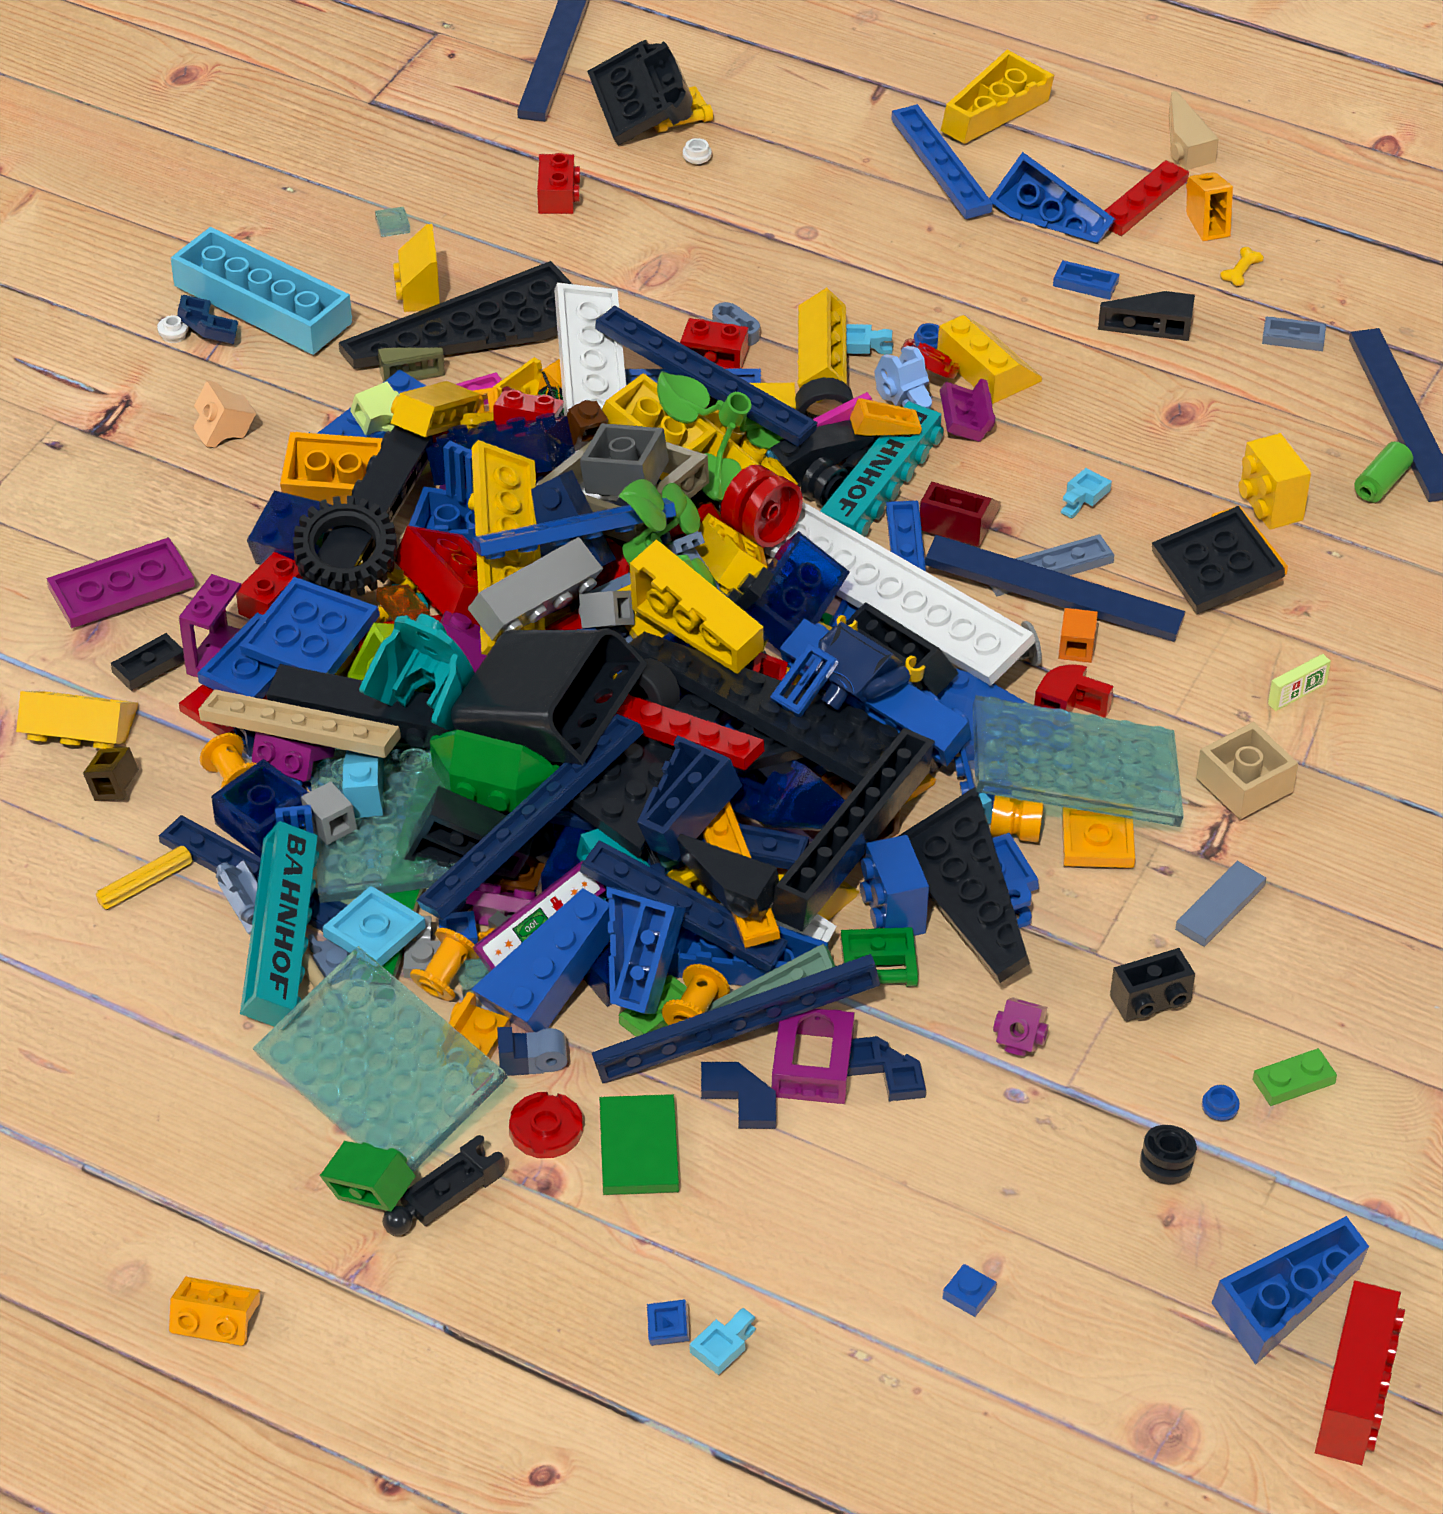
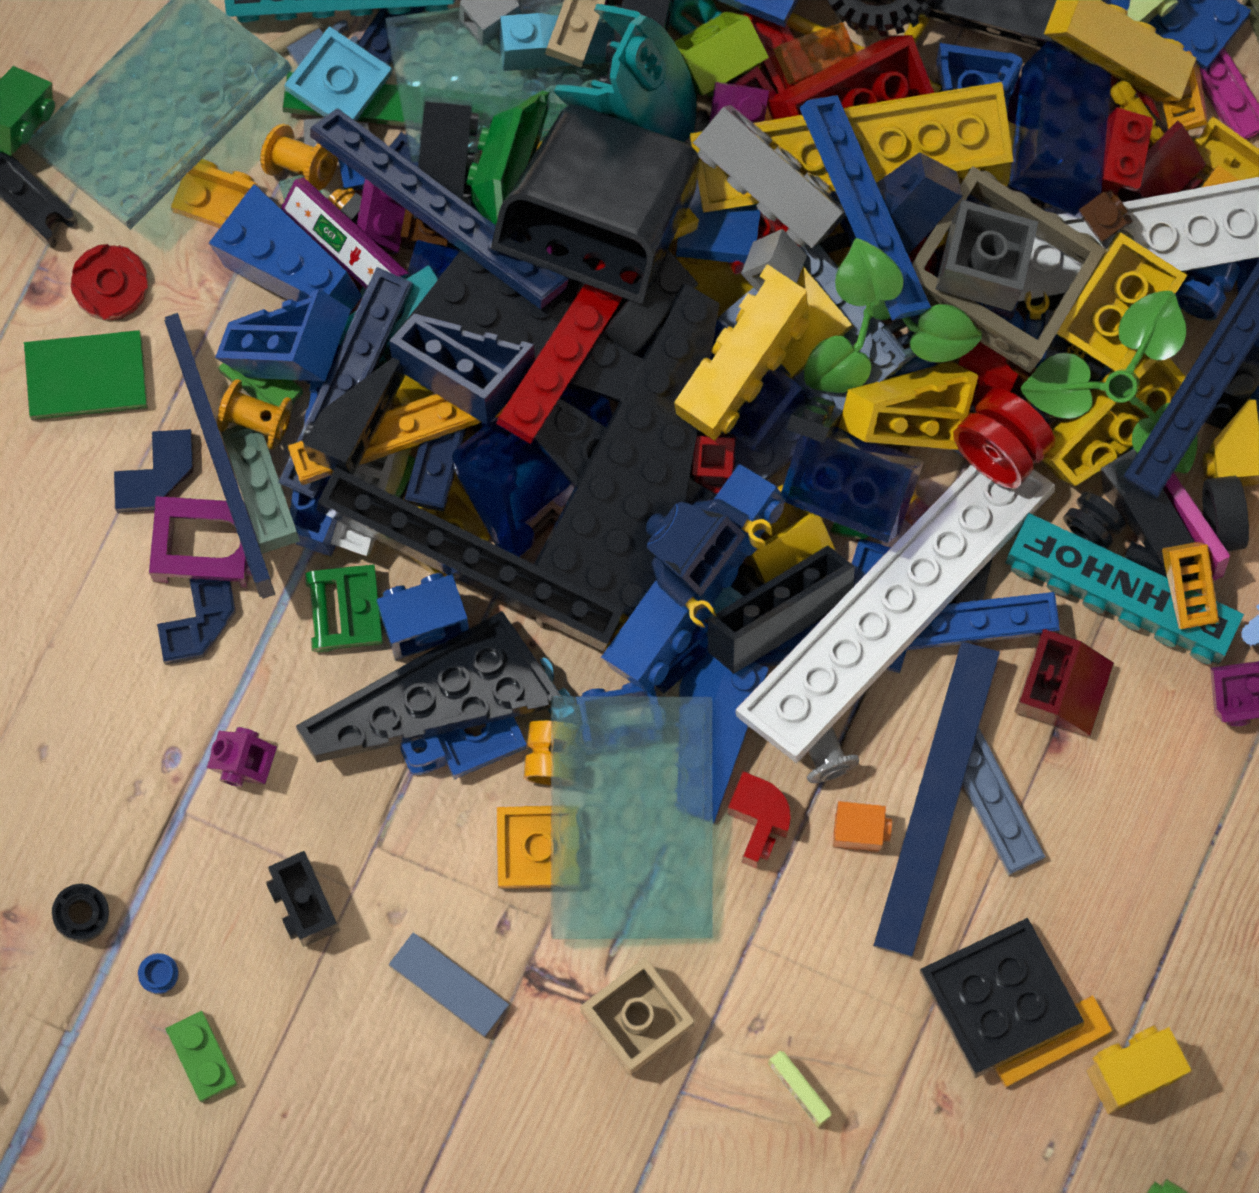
camera: 85 degrees right, 30 degrees up
(531, 1051) = (195, 254): leg -> none
(812, 691) = (682, 499): blue tile -> none
(1086, 488) = (1124, 841): medium azure plate -> none

